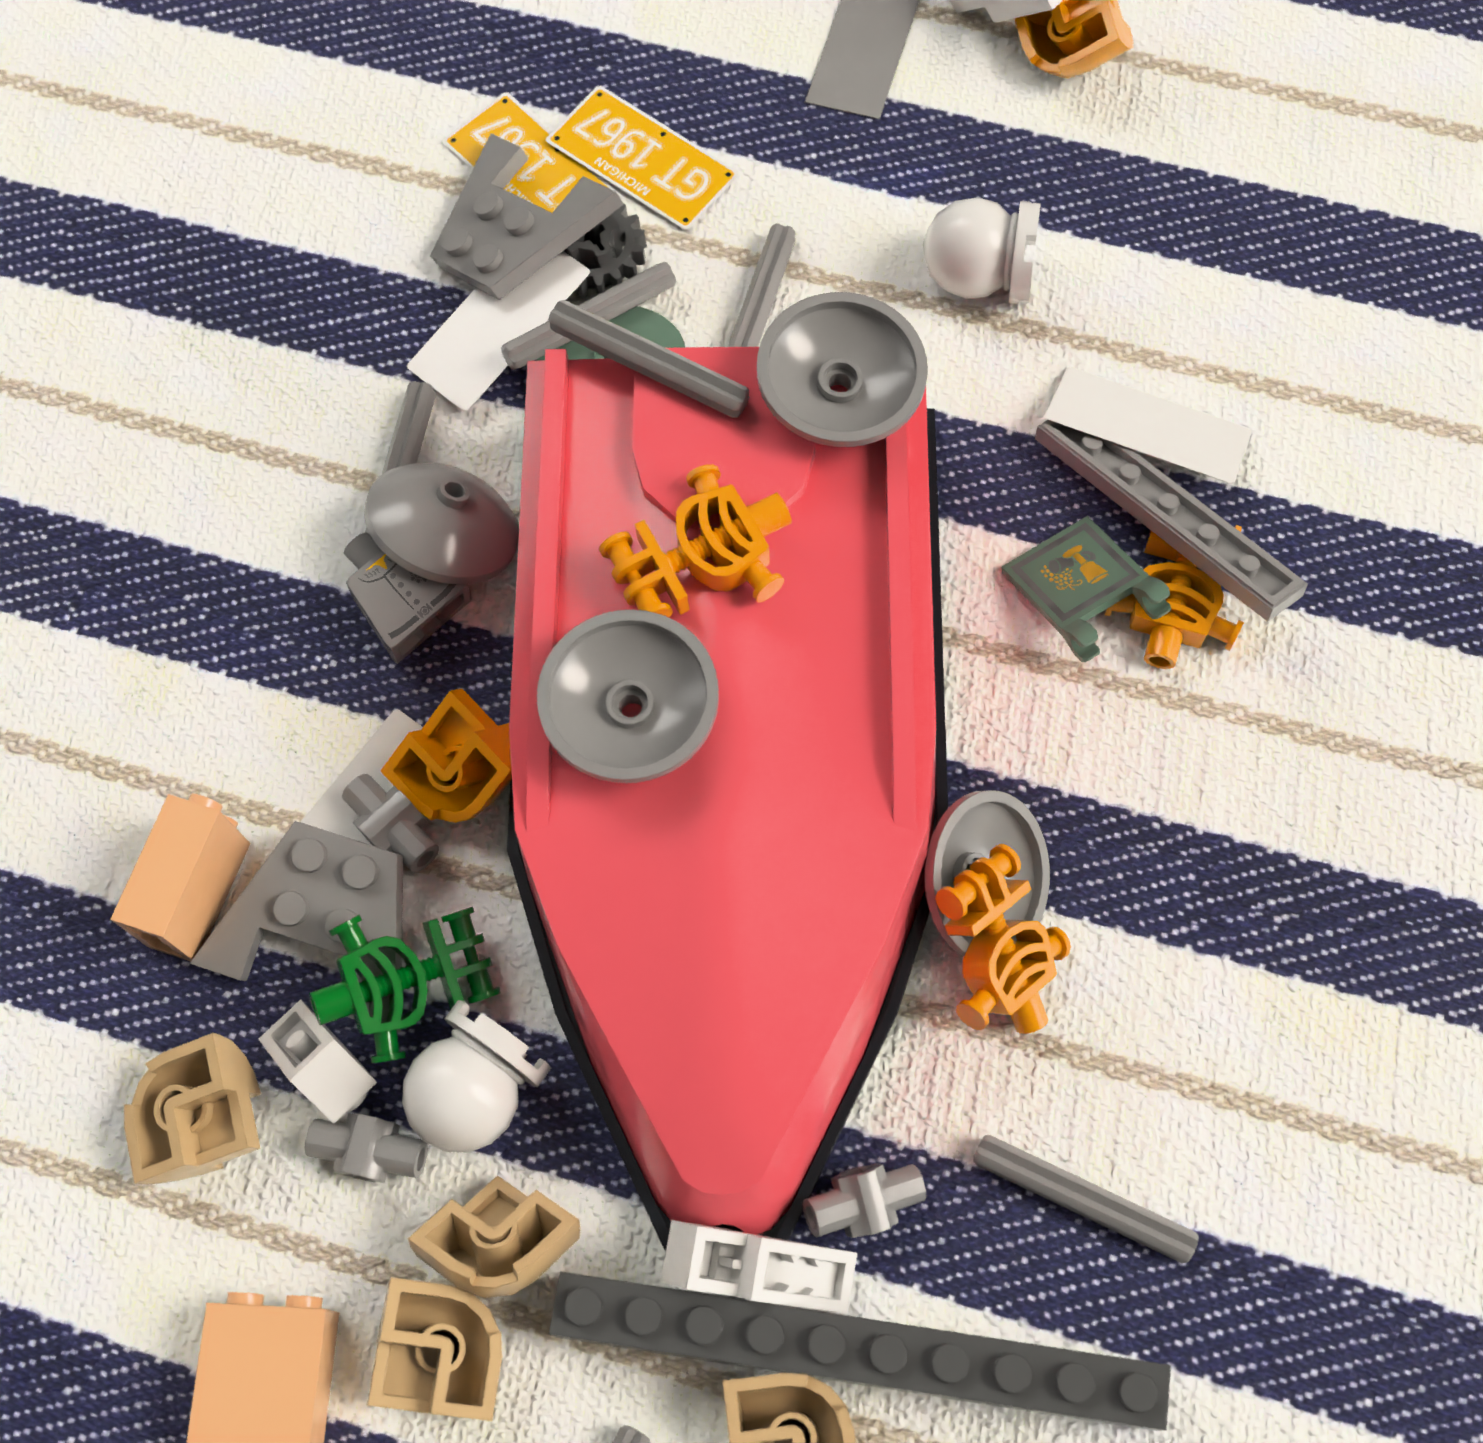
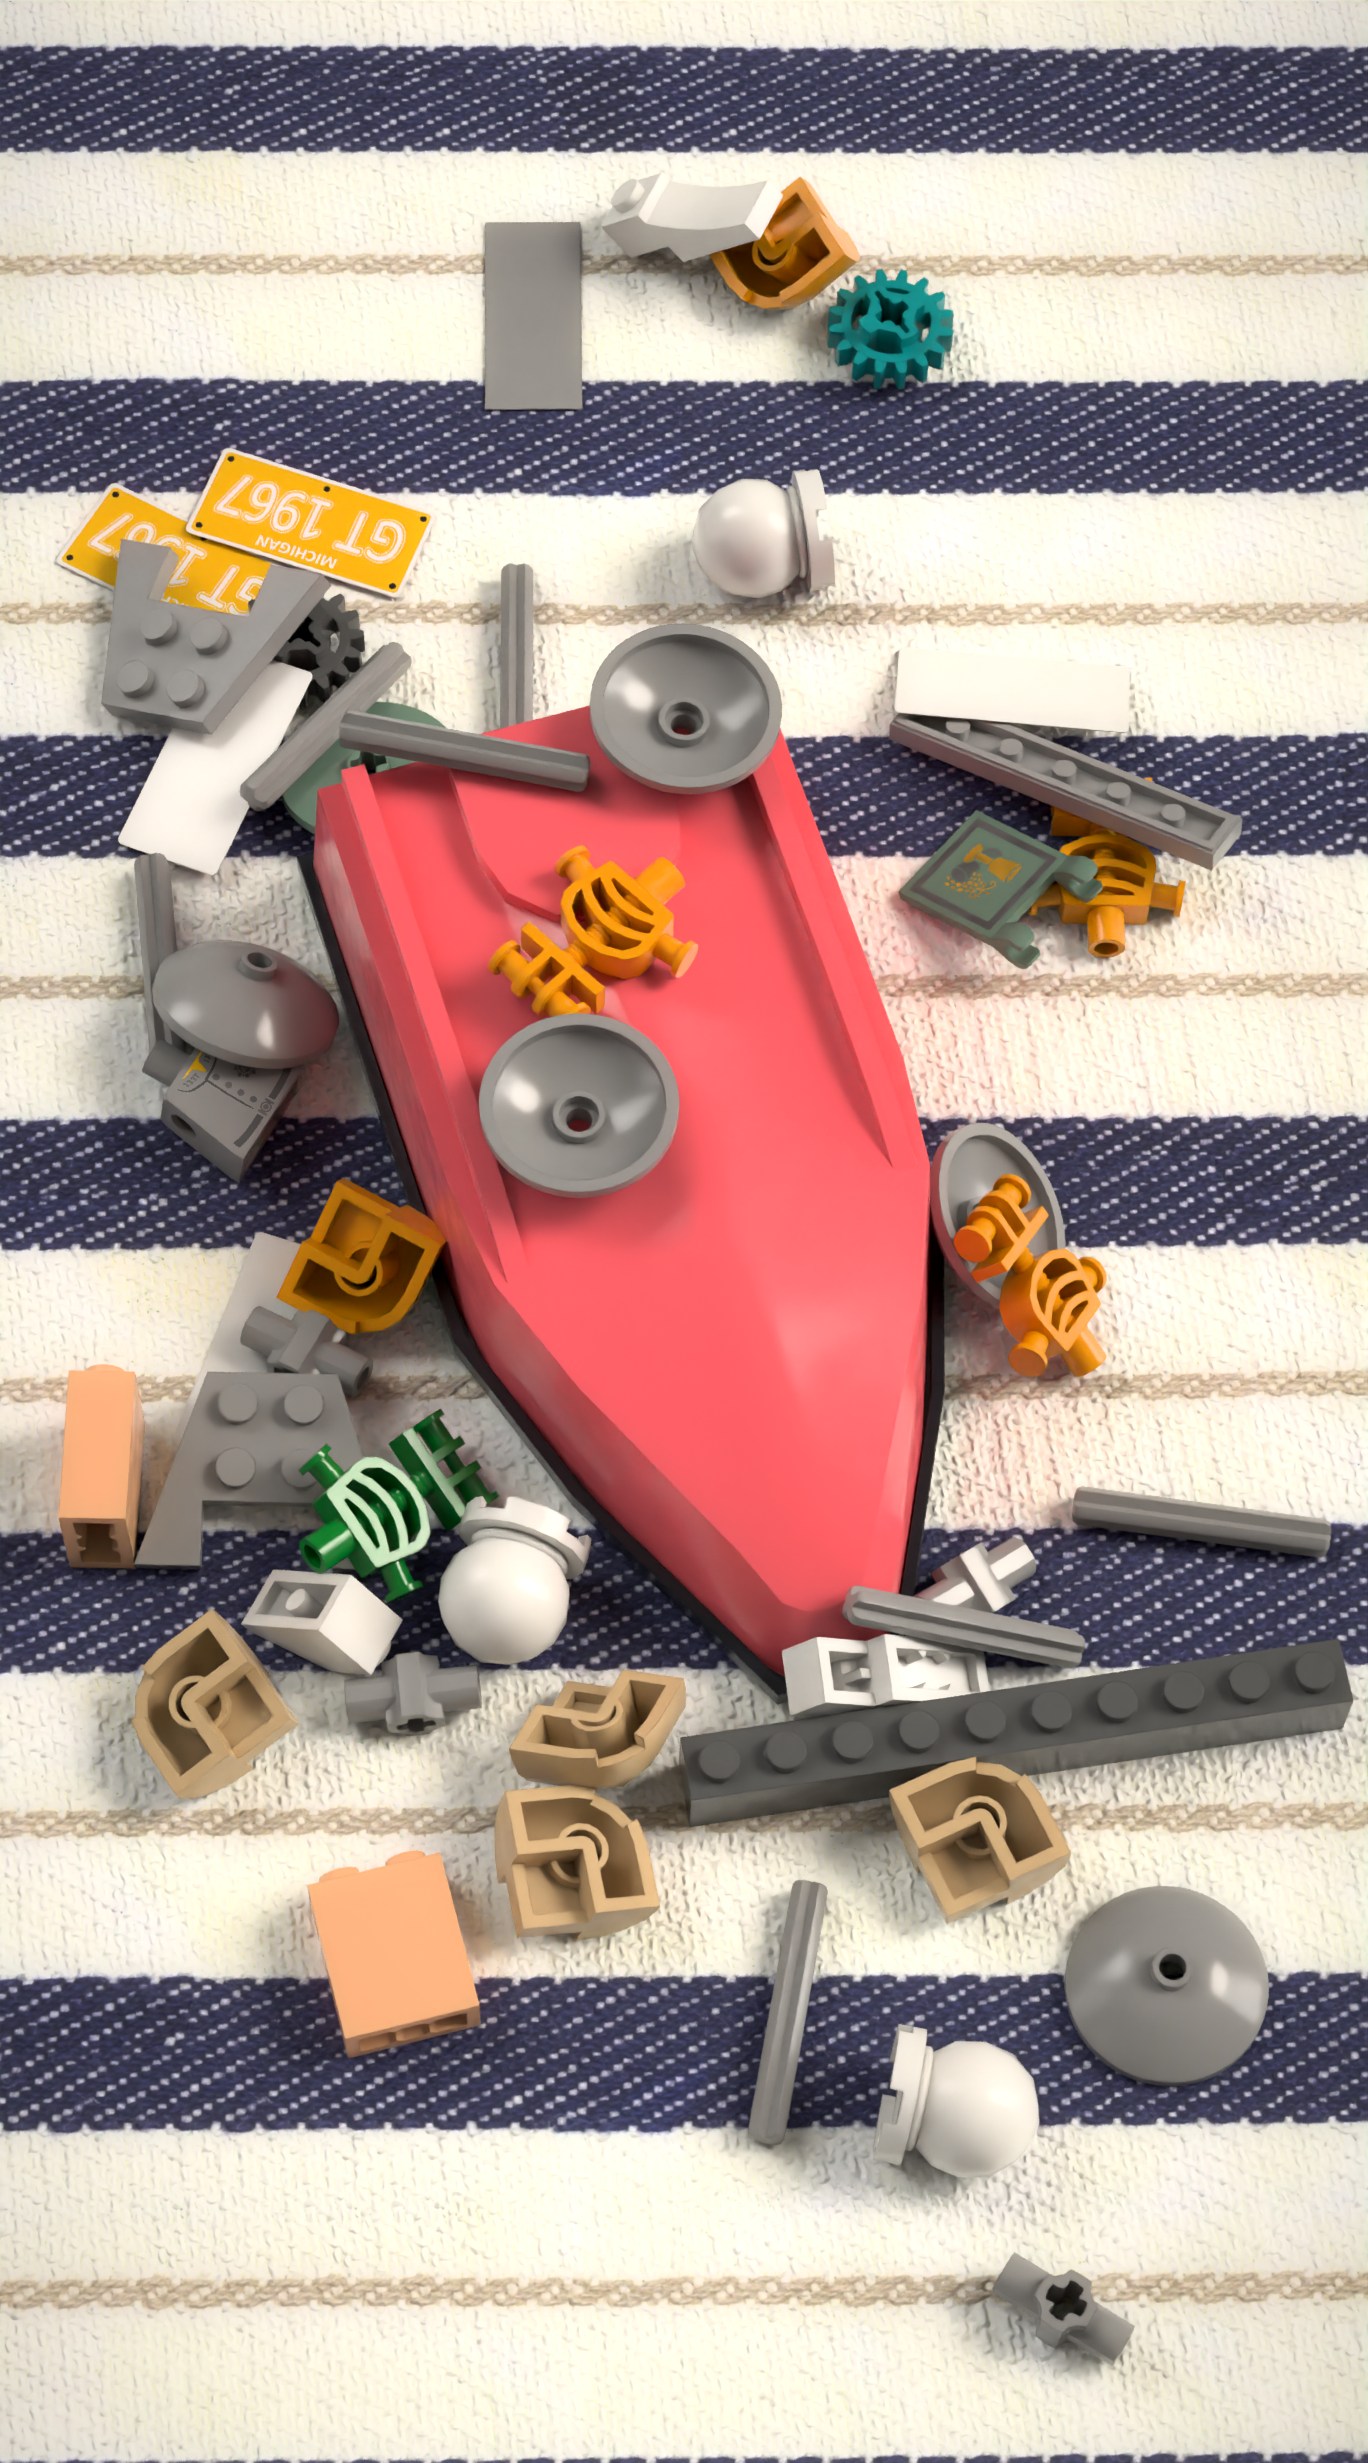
camera: 25 degrees left, 5 degrees down
(838, 1243) = (963, 1627): none -> light grey axle
(1140, 111) = (890, 329): none -> teal gear

